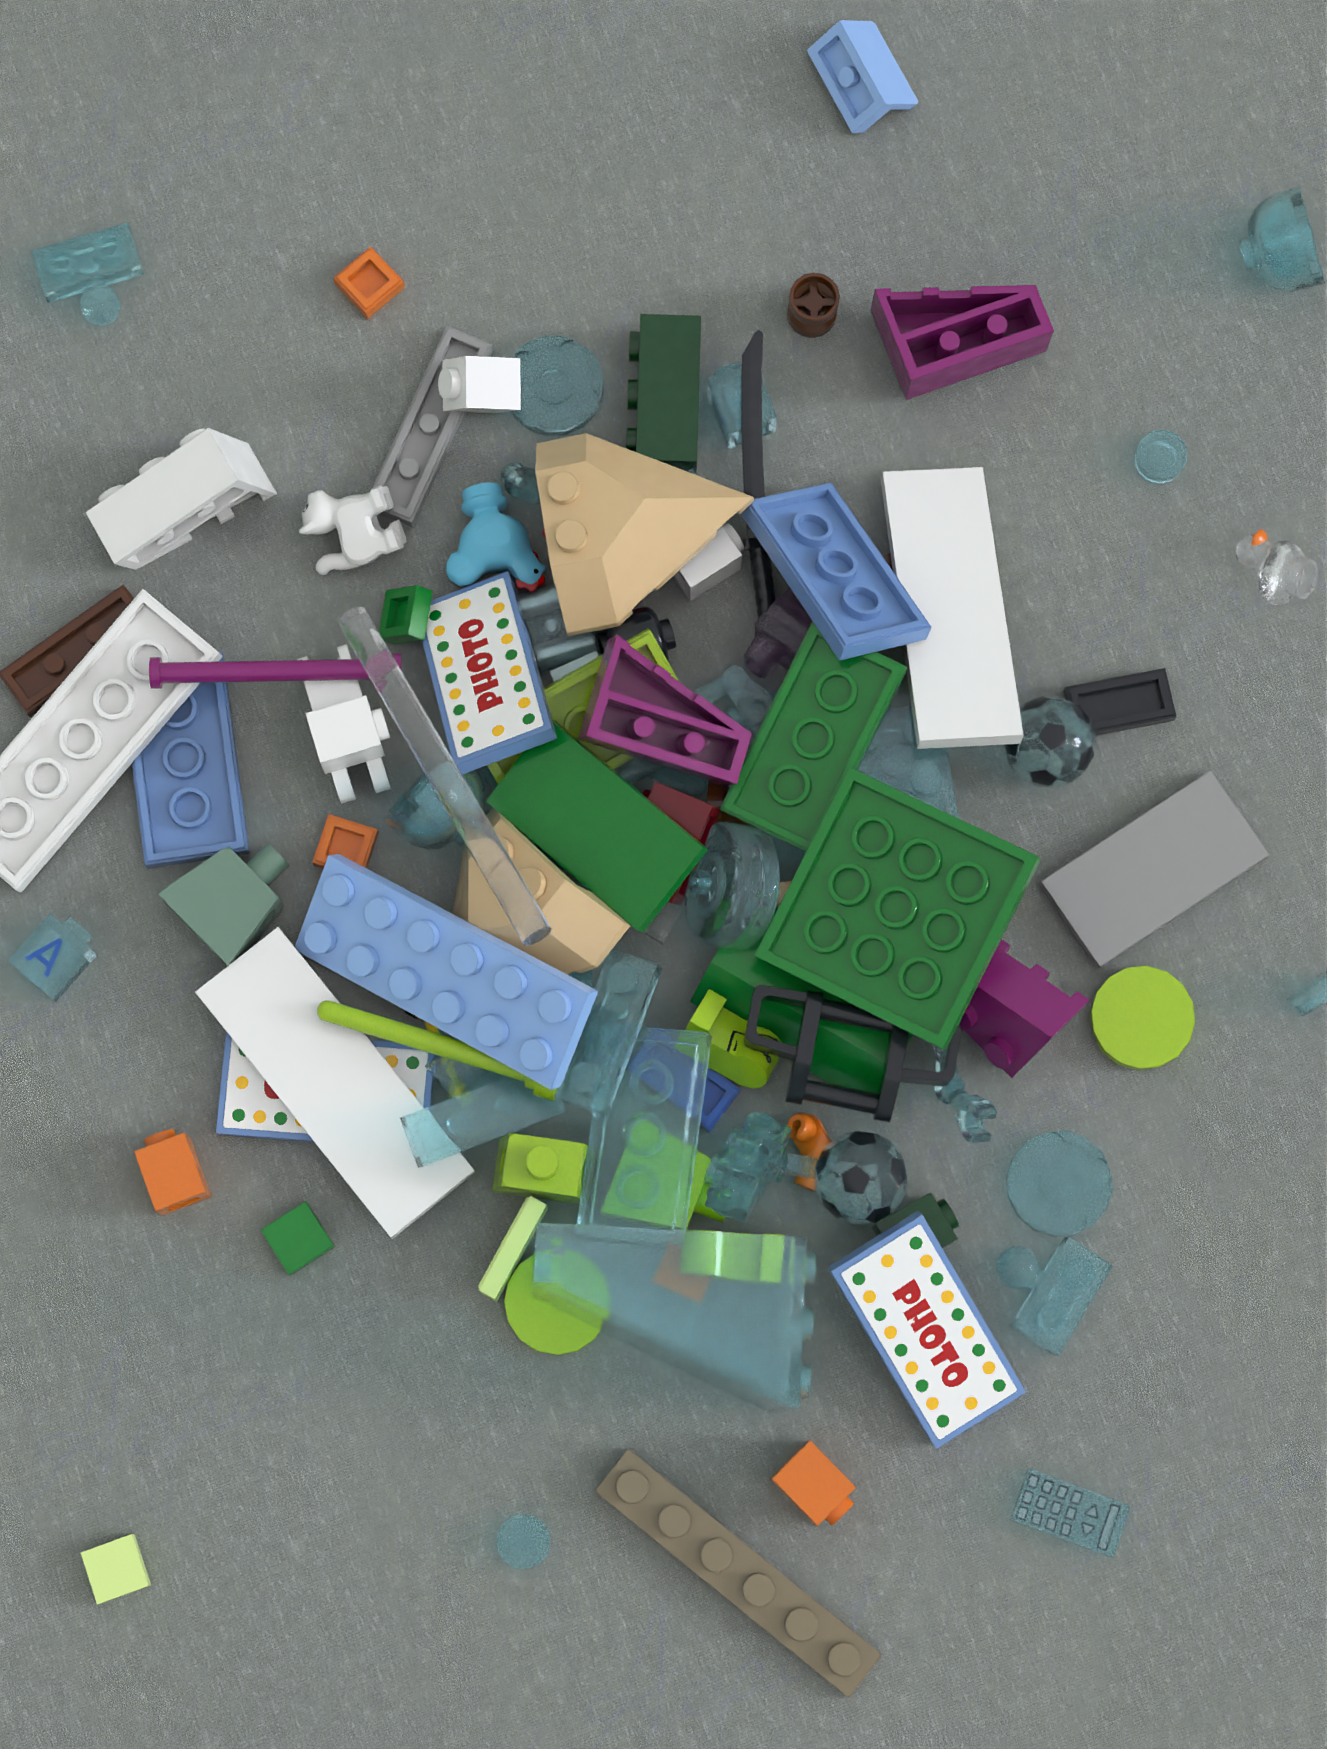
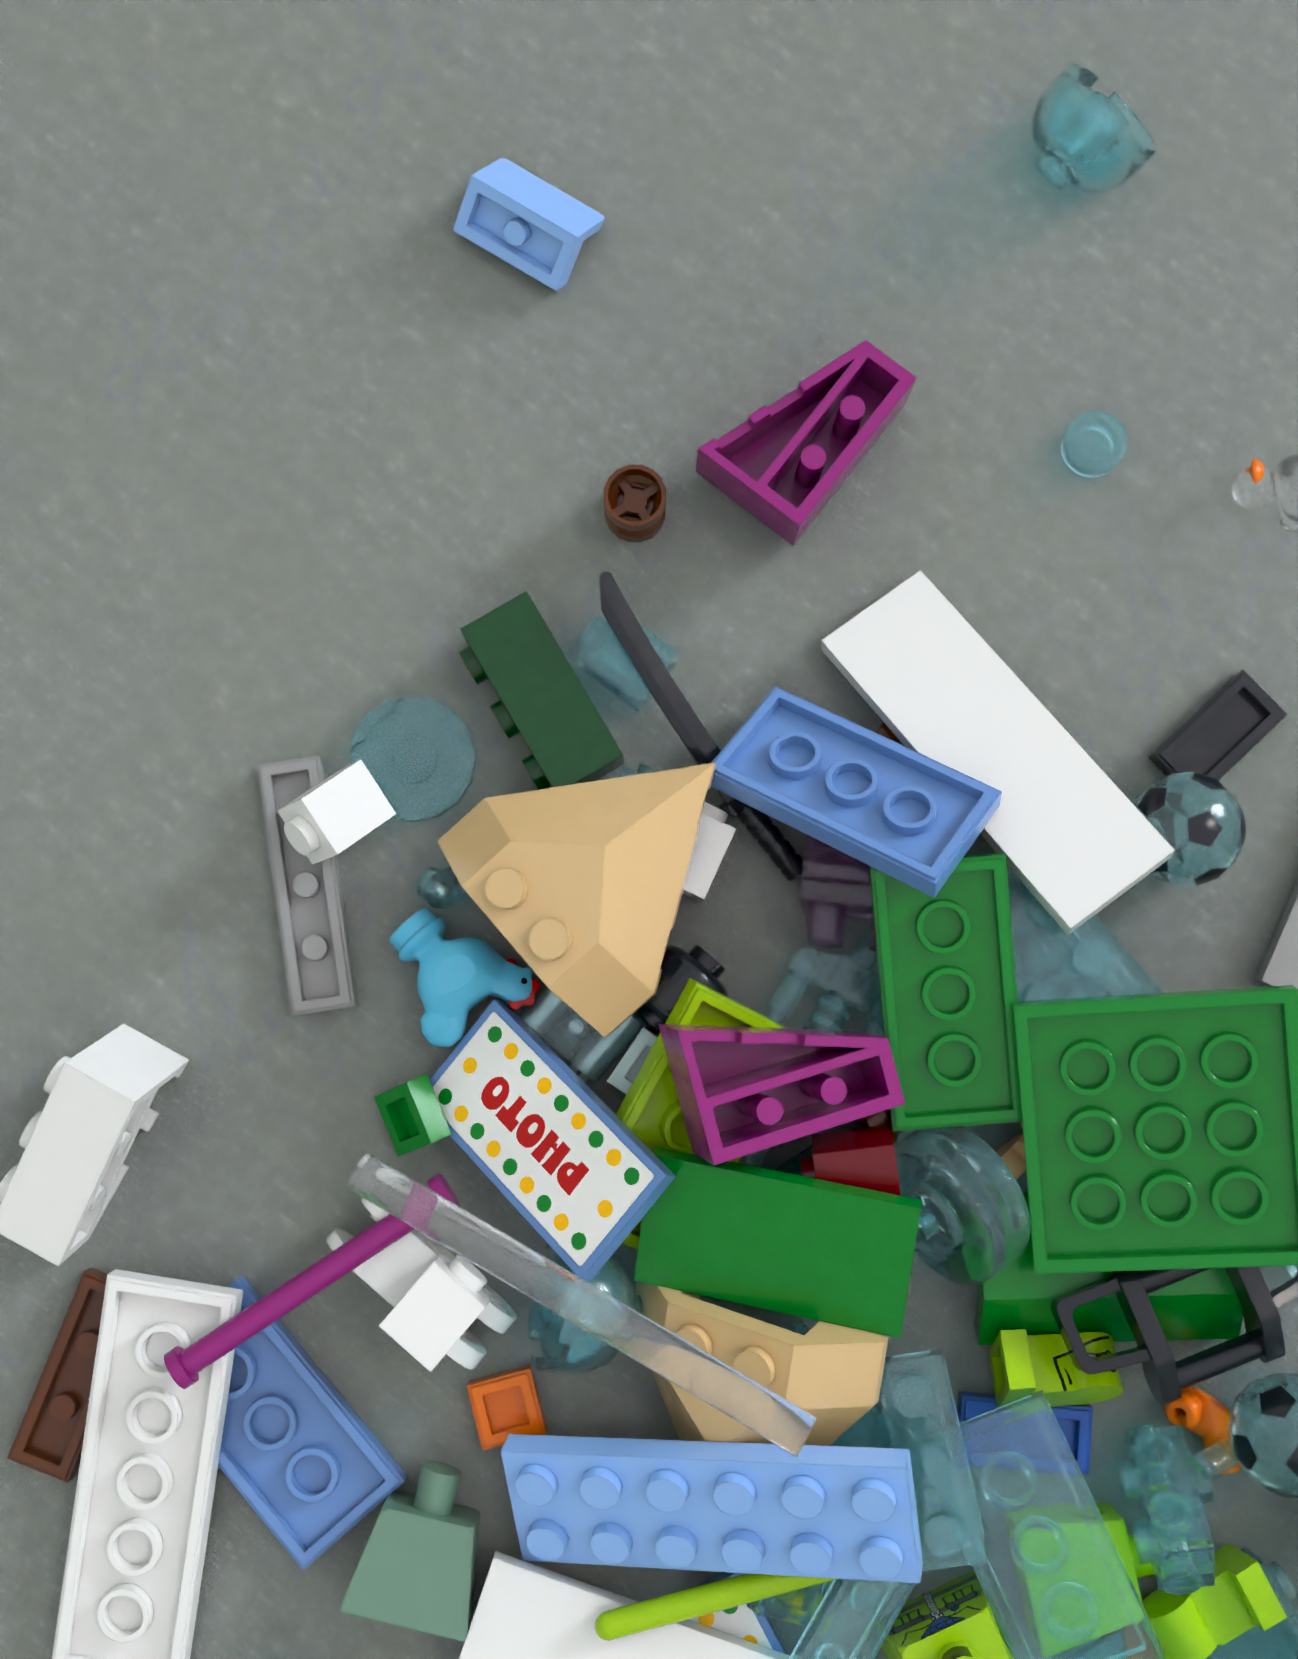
camera: 30 degrees left, 5 degrees up
(357, 526) = (299, 1050): white animal -> none
(369, 282) = (143, 767): orange tile -> none

